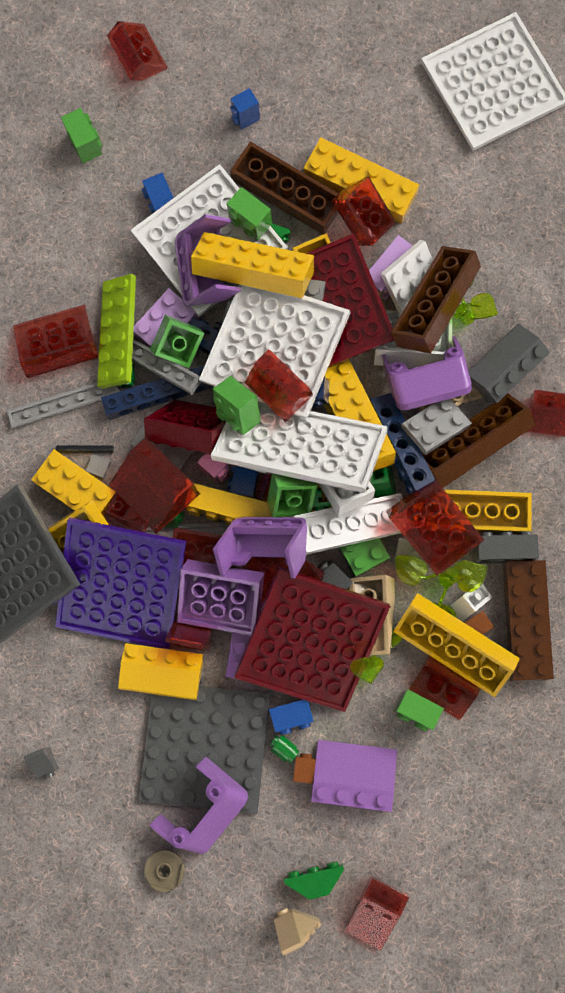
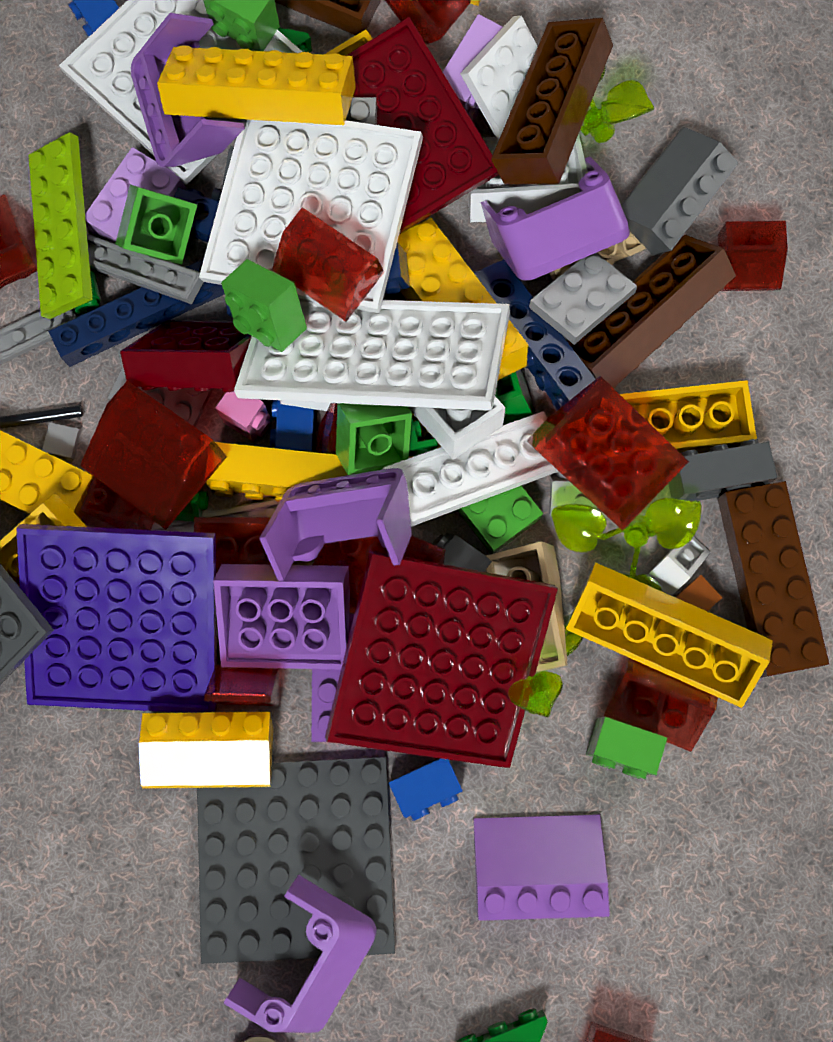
camera: 15 degrees left, 0 degrees up
(42, 763) = (34, 927): dark grey slope -> none
(284, 749) = (422, 842): green brick -> none
(304, 768) = (459, 869): dark orange brick -> none

